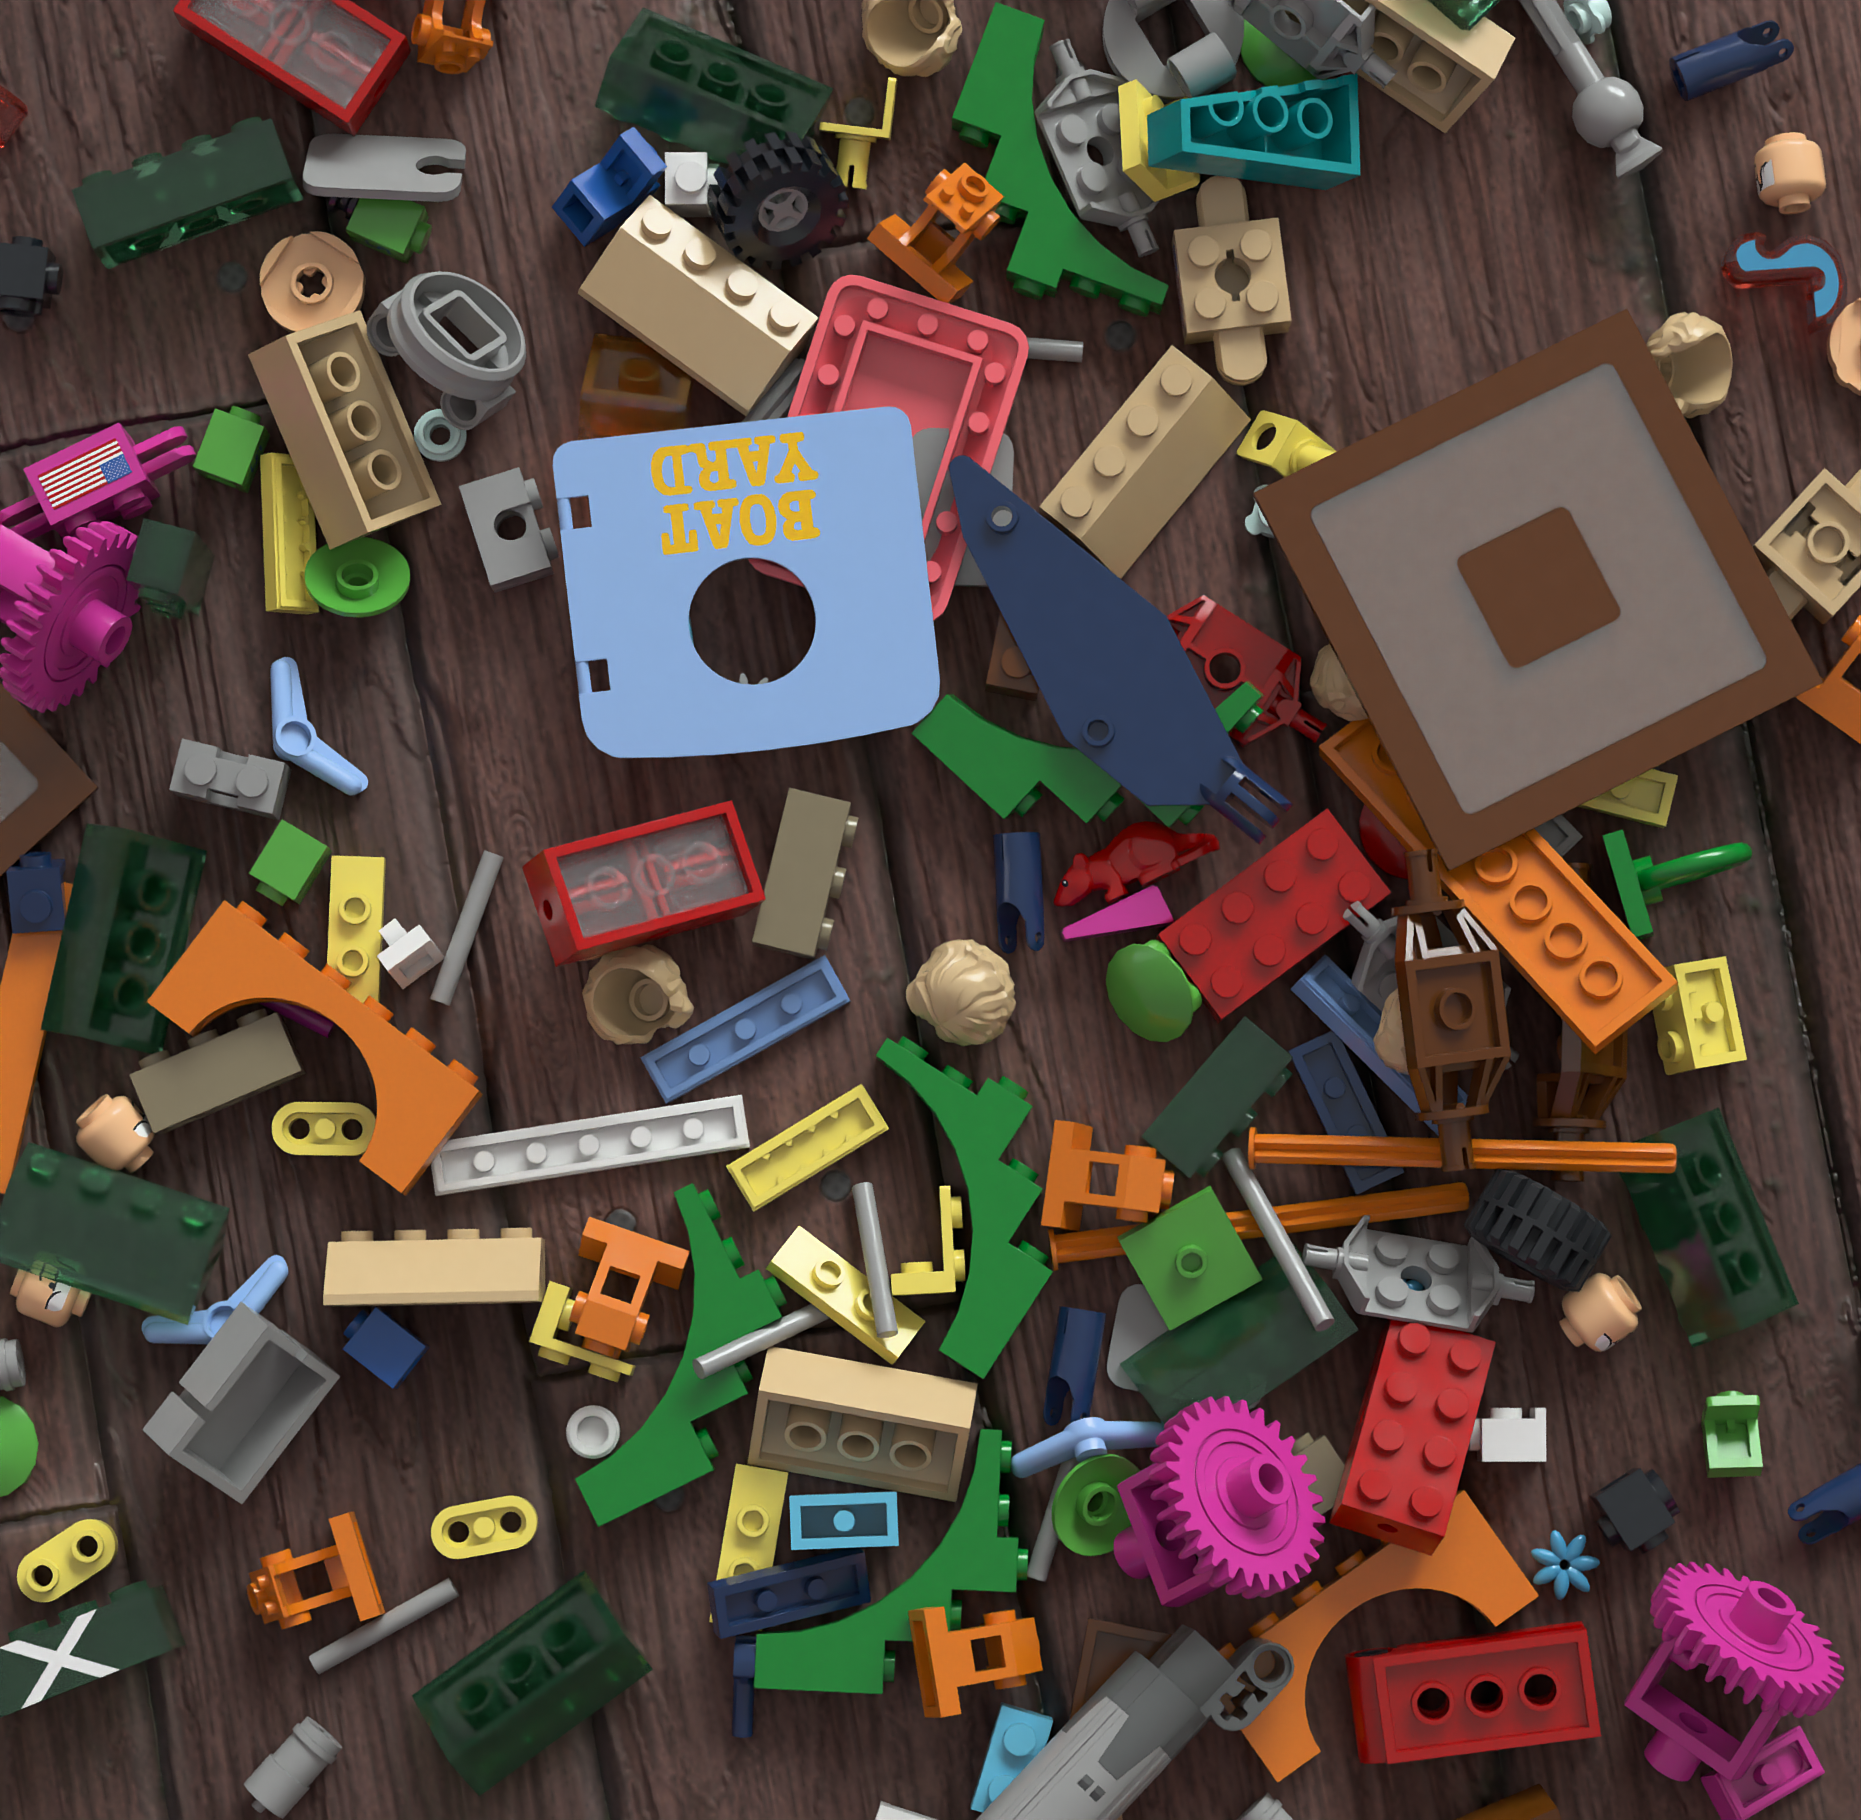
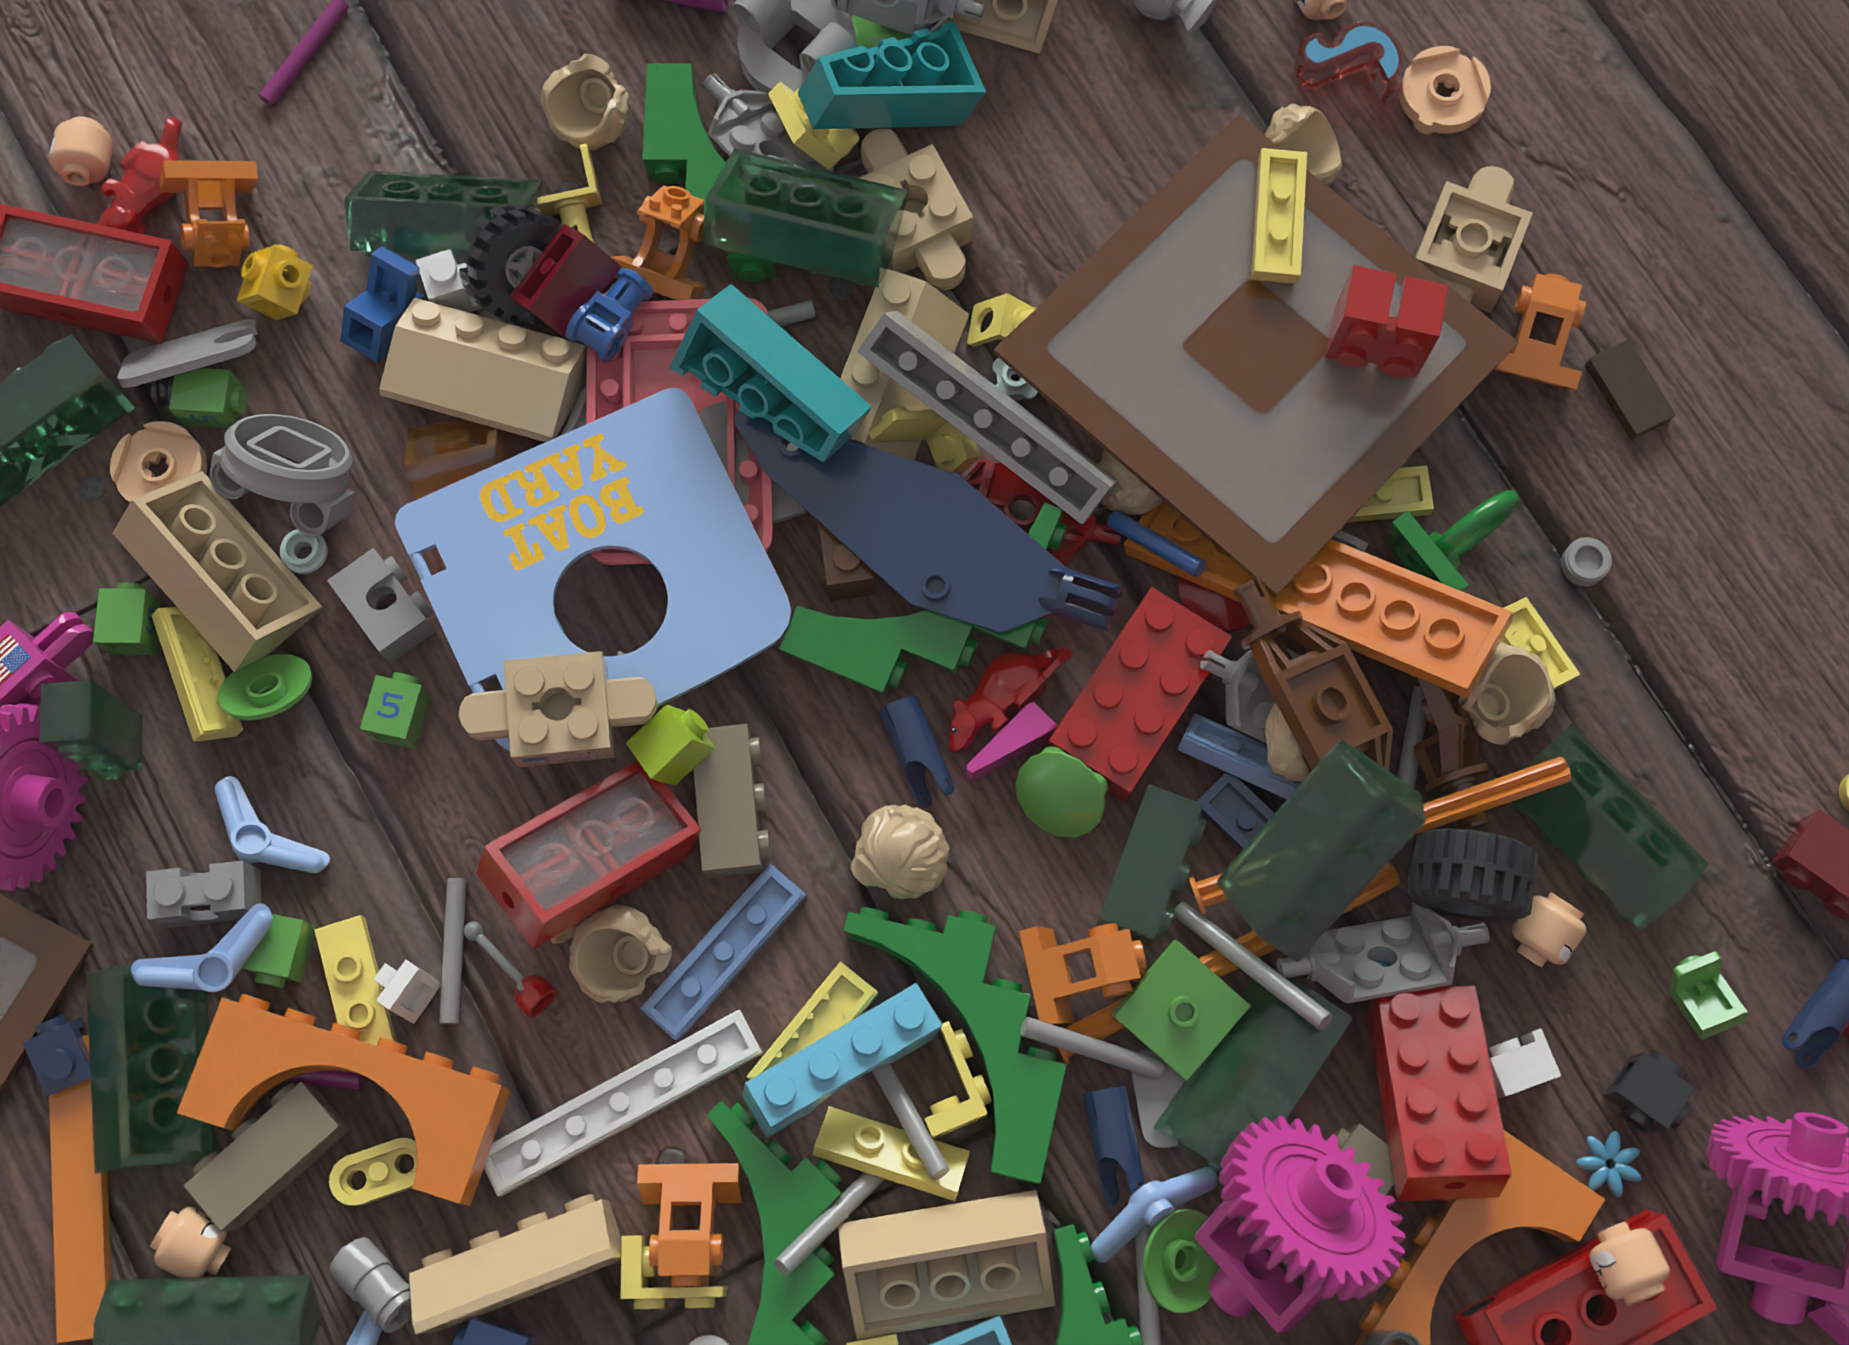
camera: 15 degrees left, 10 degrees down
(221, 866) = (213, 969): none -> light blue piece
(288, 1239) = (373, 1283): none -> light grey piece
(487, 651) = (396, 710): none -> bright green brick
(502, 114) = (275, 281): none -> yellow brick
(535, 1000) = (532, 992): none -> hinge
(662, 725) = (558, 709): none -> tan brick
(765, 799) = (671, 744): none -> lime brick
(820, 241) = (565, 279): none -> dark red brick
(828, 1185) = (839, 1058): none -> medium azure arch
(850, 301) = (608, 318): none -> blue connector
(1004, 439) = (769, 374): none -> teal wedge
(1085, 1264) = (1092, 1048): none -> light grey bar
(1105, 261) = (804, 217): none -> clear green slope
(1175, 554) = (948, 445): none -> light yellow bracket
(1221, 565) = (987, 415): none -> light grey brick
(1351, 762) = (1156, 543): none -> blue piece
(1386, 1153) = (1321, 849): none -> clear green slope
(1527, 1090) = (1413, 735): none -> light grey bar
(1527, 1662) = (1629, 1264): none -> light nougat head
(1619, 450) = (1279, 216): none -> light yellow plate
(1654, 1059) = (1510, 695): none -> tan hair
(1699, 636) = (1367, 334): none -> red piece
(1808, 939) = (1586, 561): none -> light grey tile

